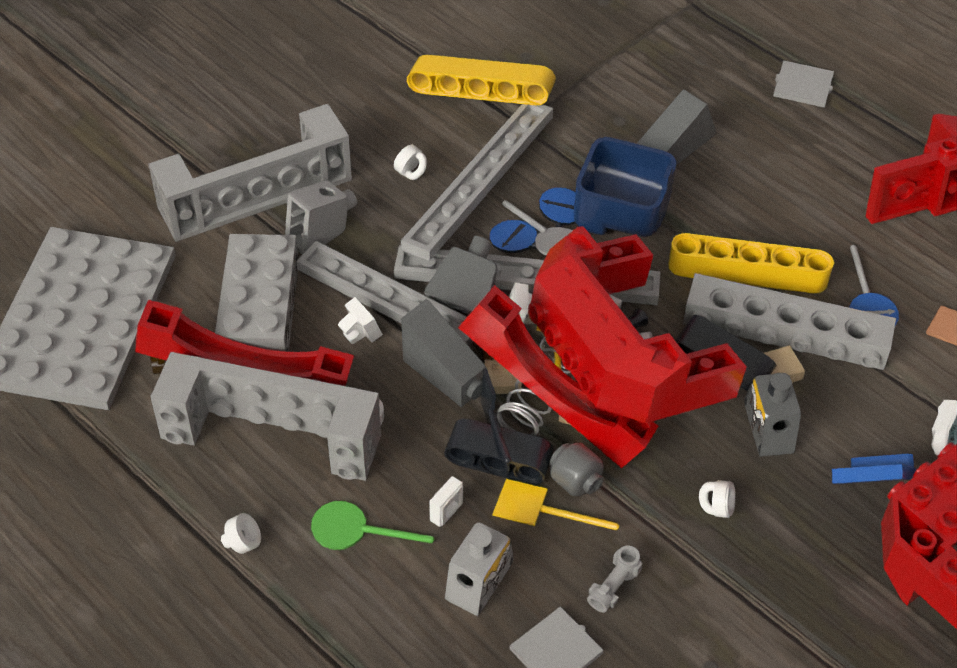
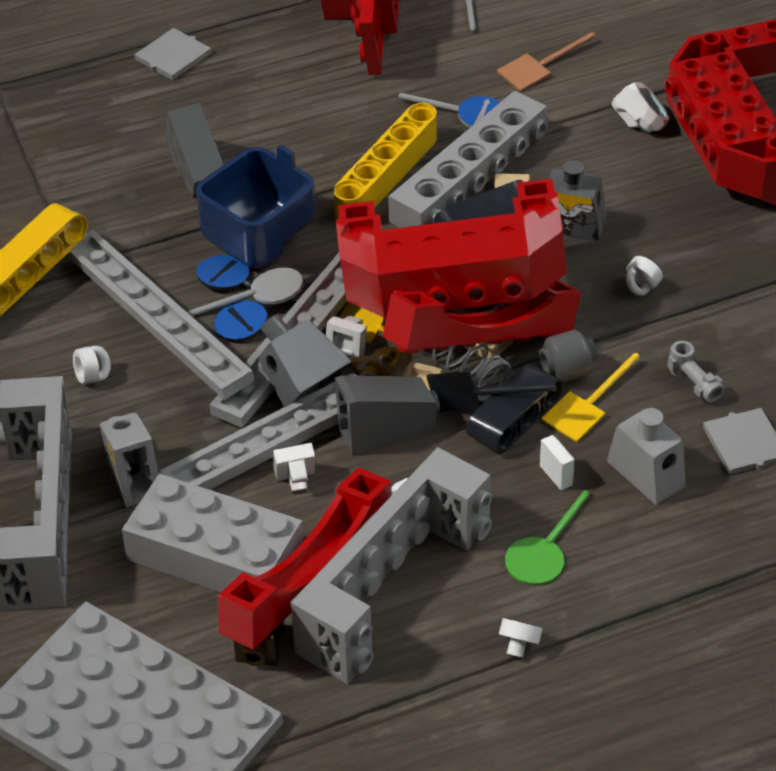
camera: 65 degrees left, 5 degrees down
(876, 469) = (667, 163): blue slope -> none

